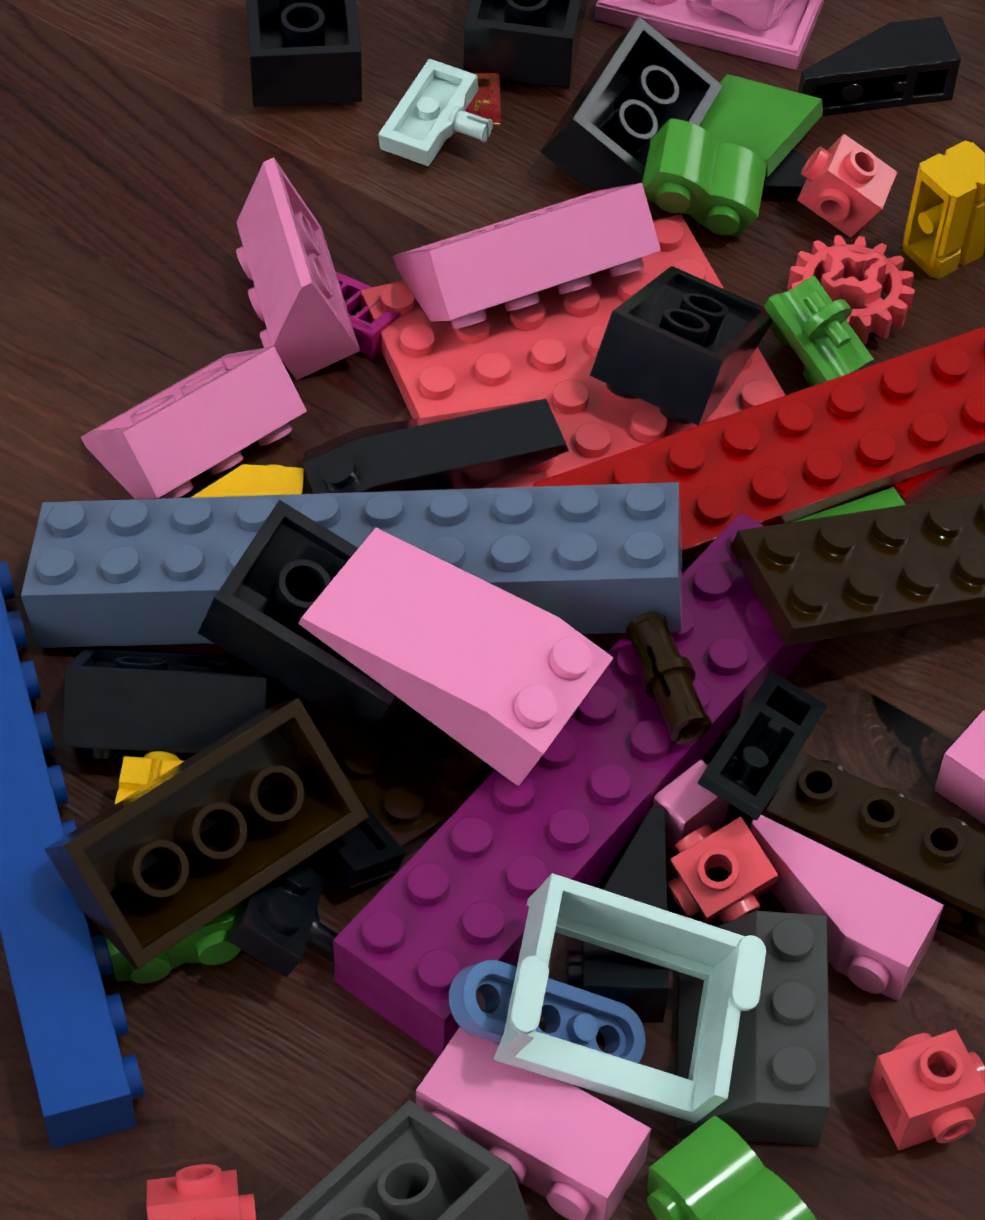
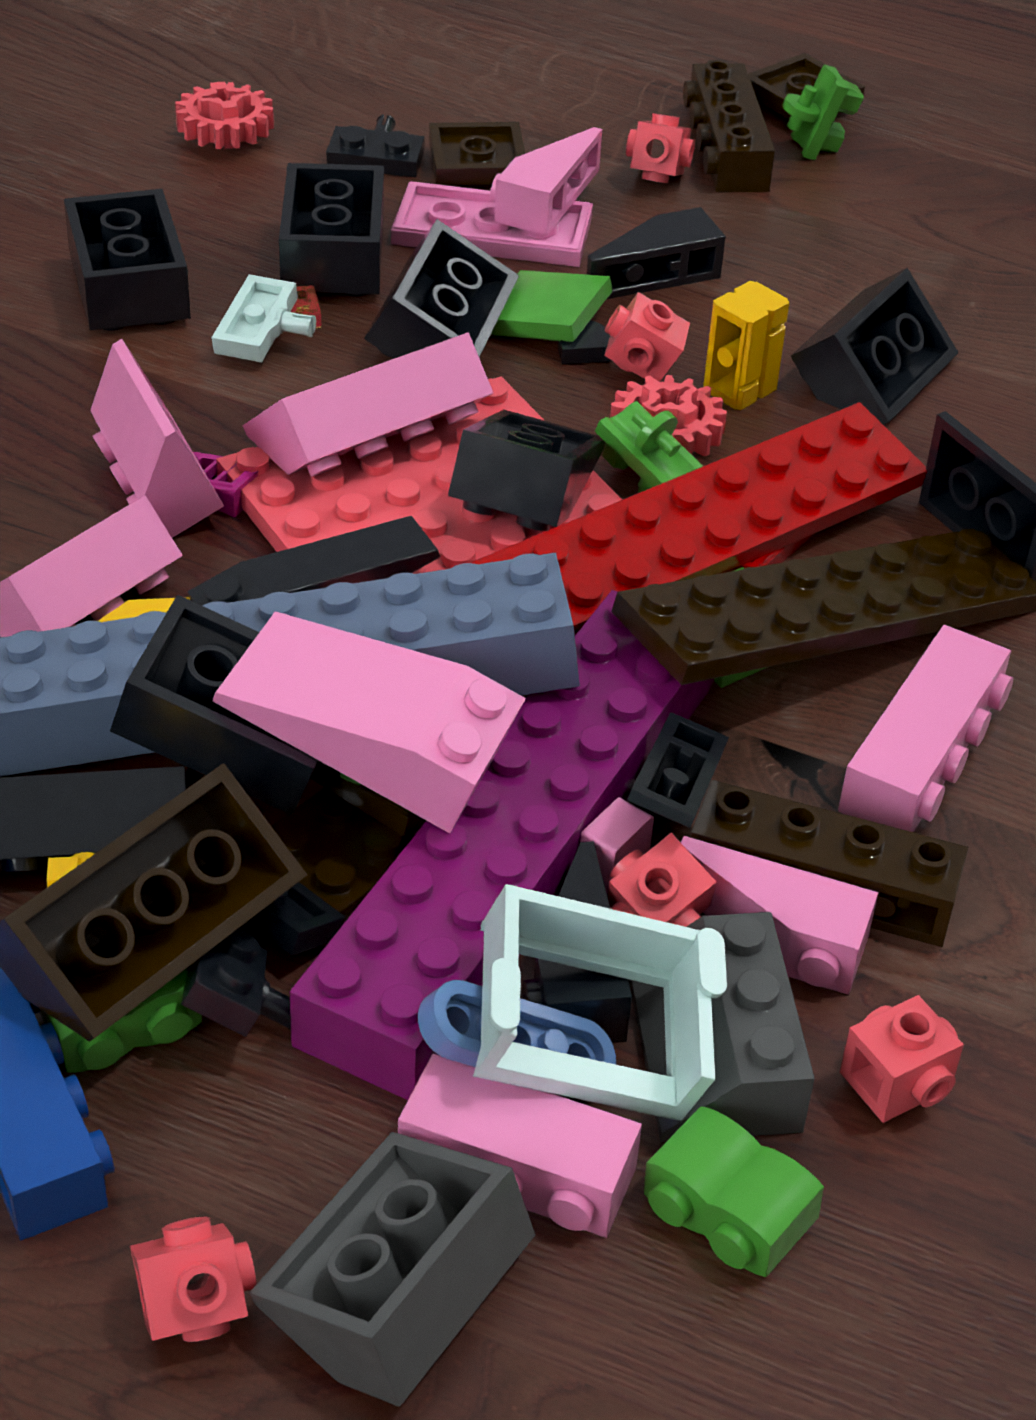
camera: 10 degrees left, 10 degrees down
(668, 678) = (577, 722): dark brown pin -> none
(704, 177) = (520, 341): bright green brick -> none

